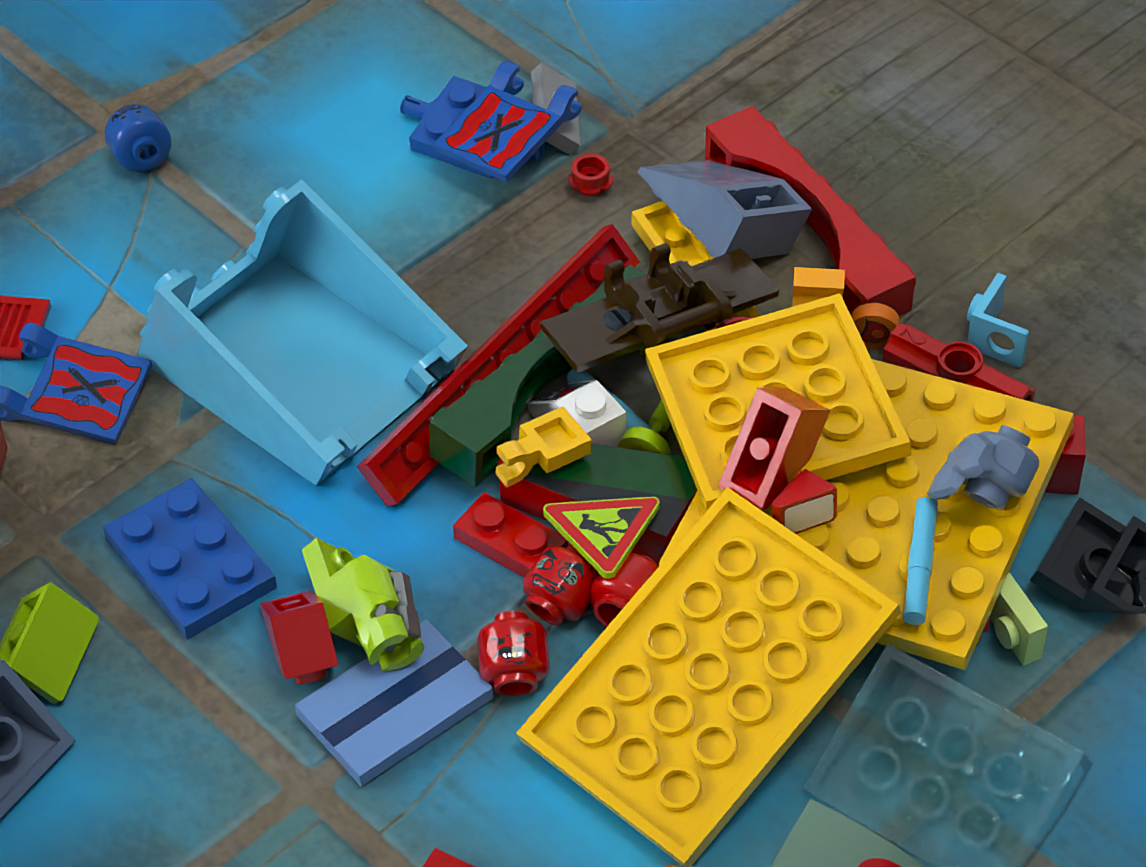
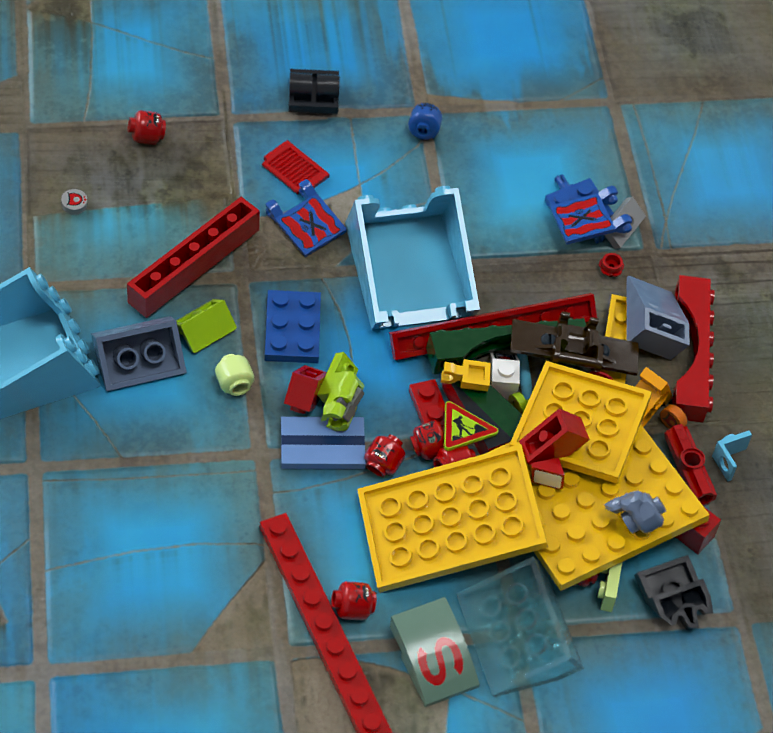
camera: 30 degrees right, 5 degrees up
(164, 688) = (234, 374): none -> yellowish green head
(920, 561) = (577, 531): medium azure piece -> none

